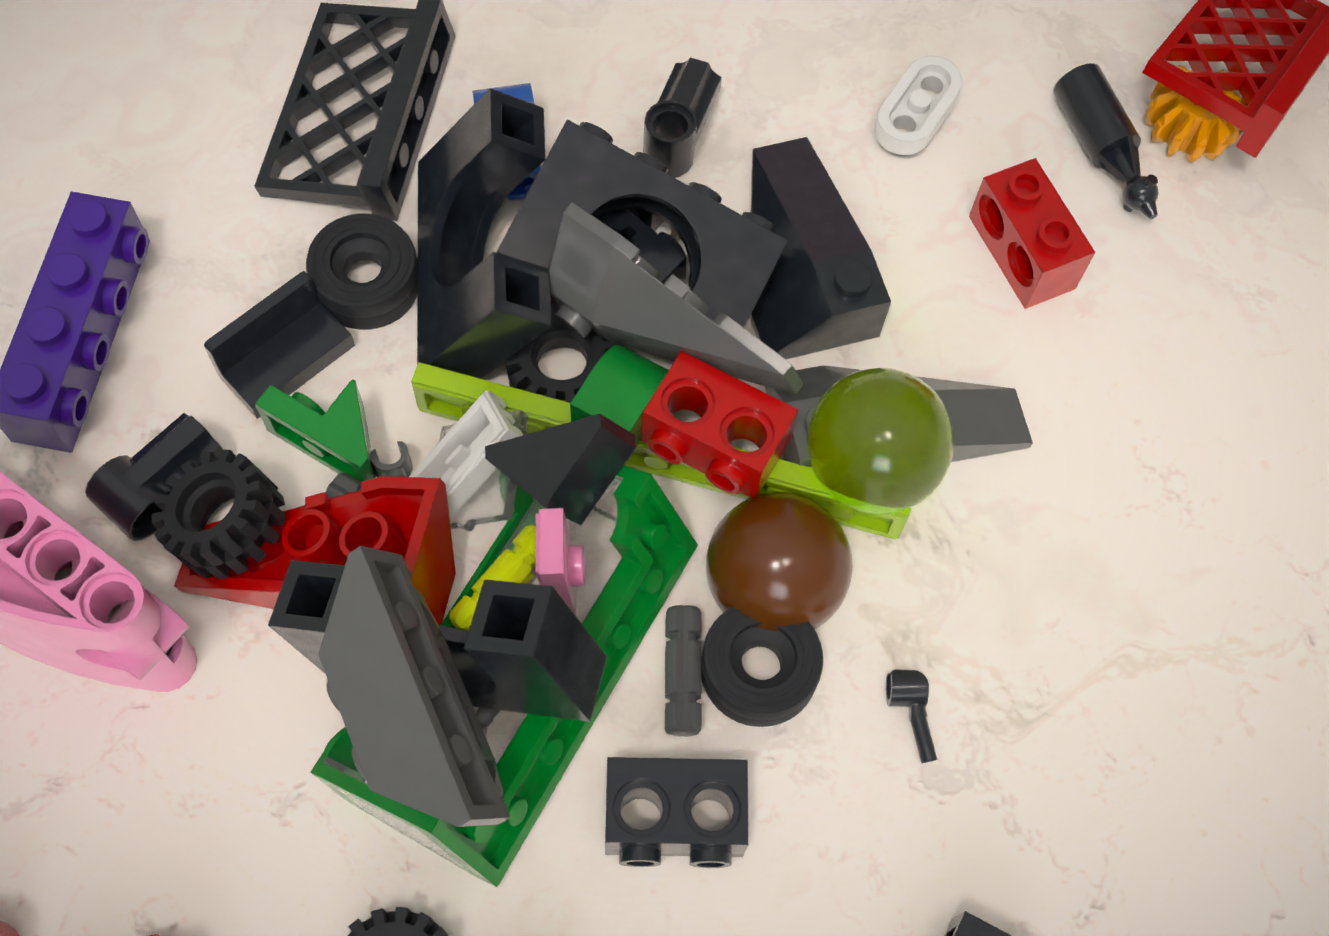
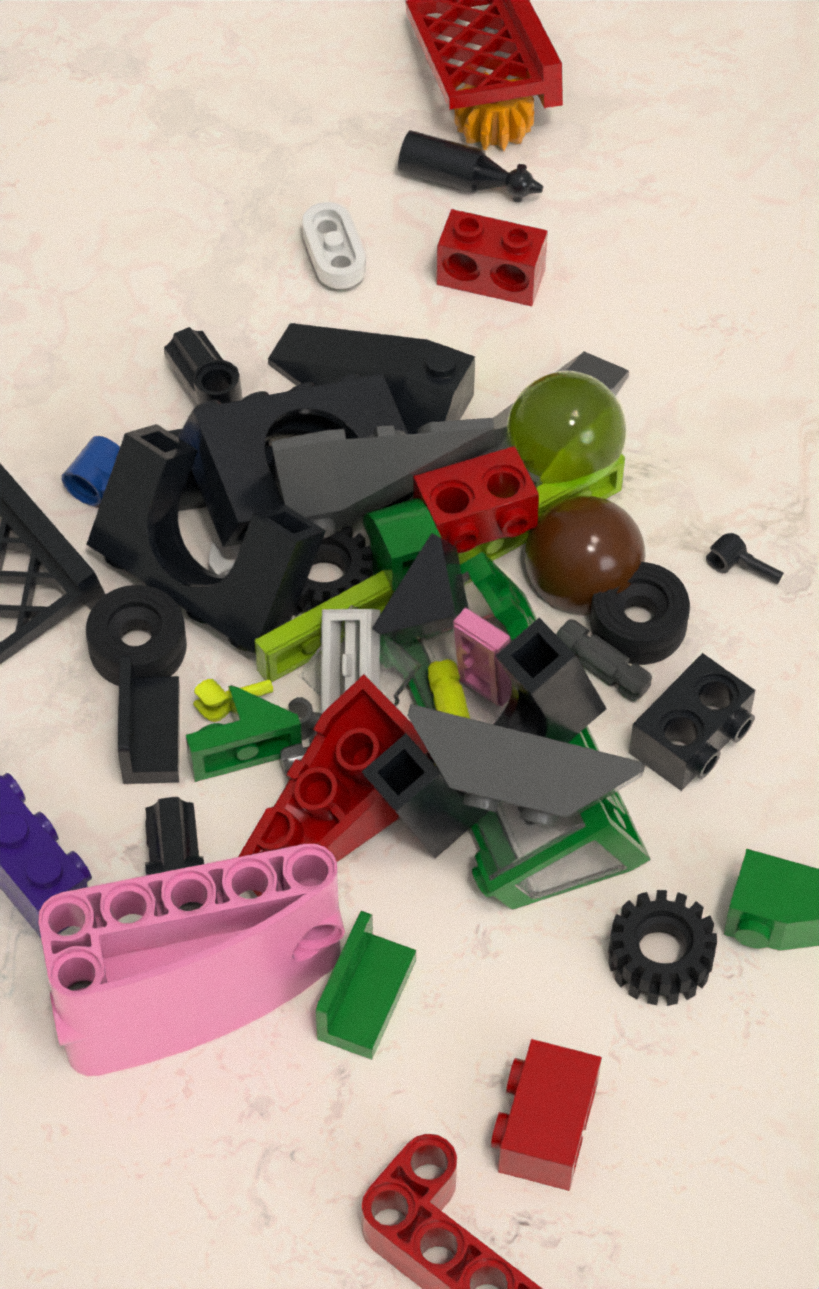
camera: 45 degrees left, 10 degrees down
(140, 735) = (363, 990): none -> green panel
(238, 533) = (236, 804): black tyre -> none
(361, 370) = (215, 702): none -> neon yellow hand

